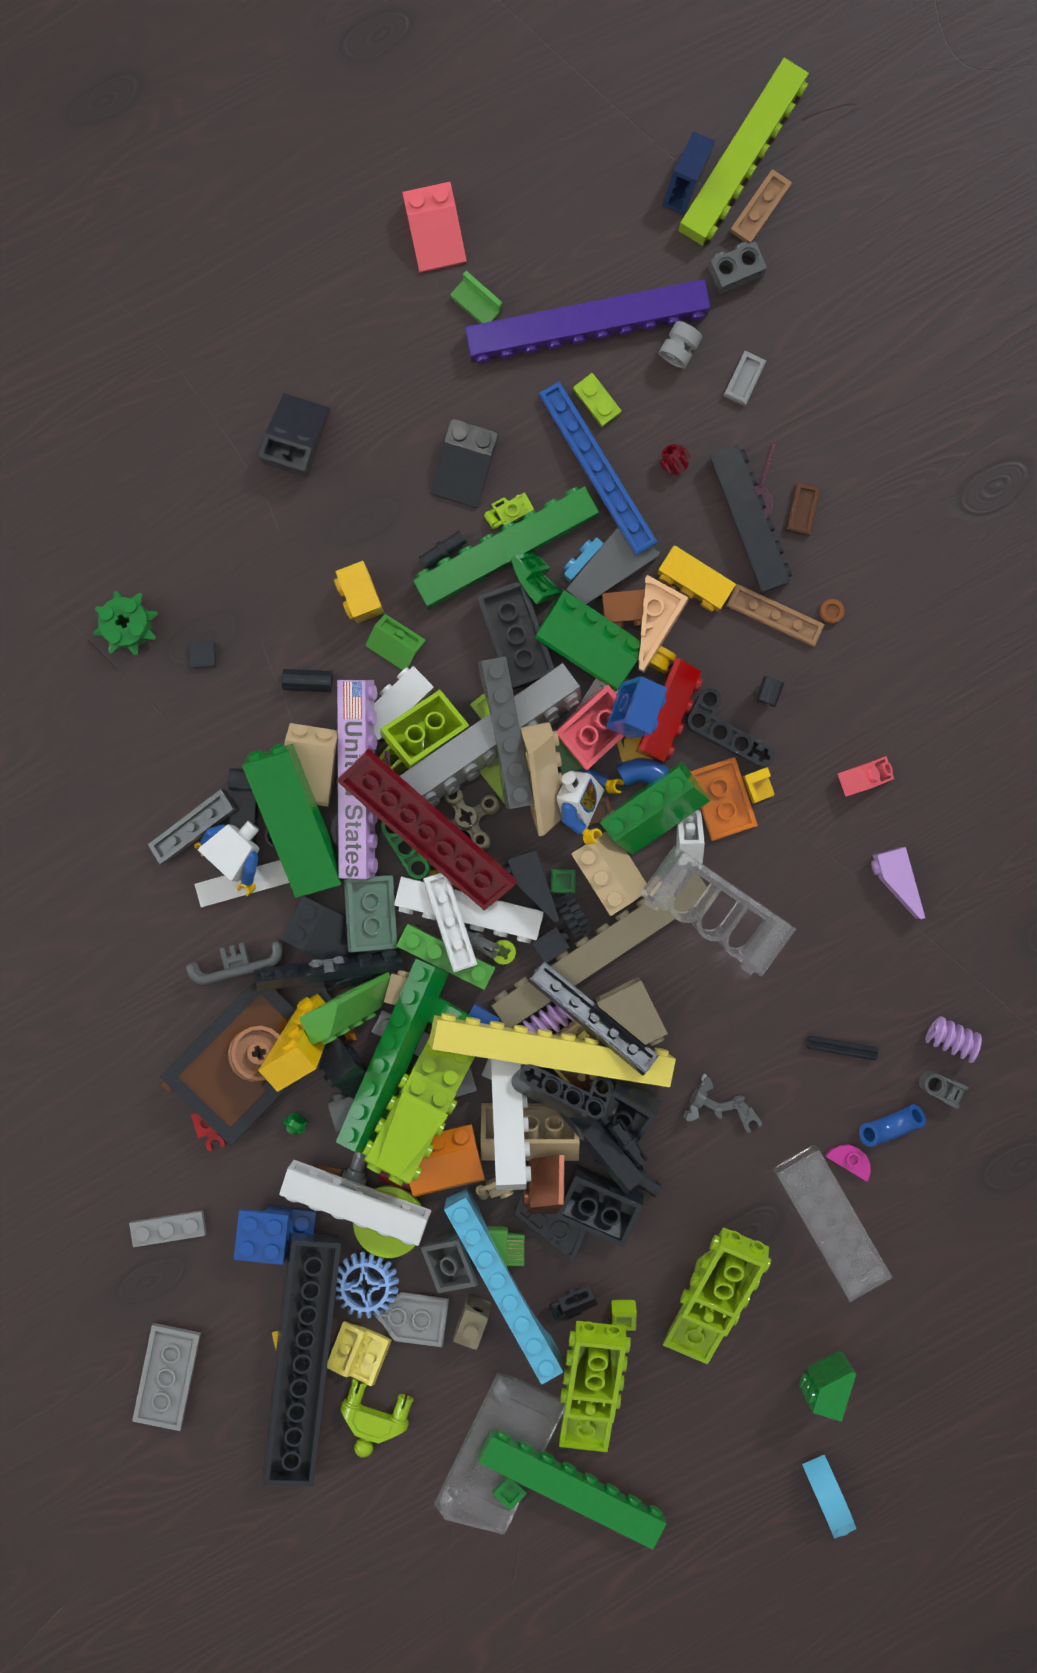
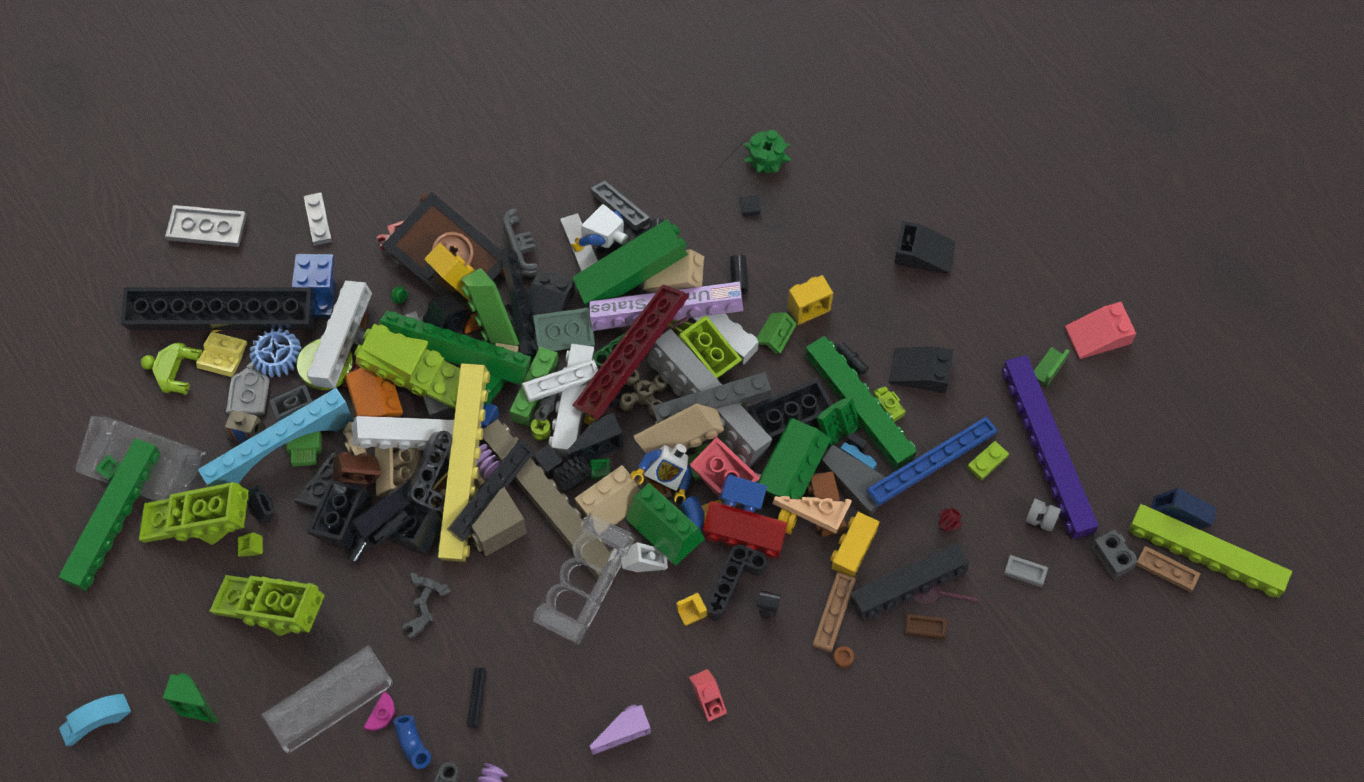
camera: 90 degrees right, 25 degrees down
(563, 557) = (857, 441): none -> black tile
(729, 804) = (677, 583): orange tile -> none

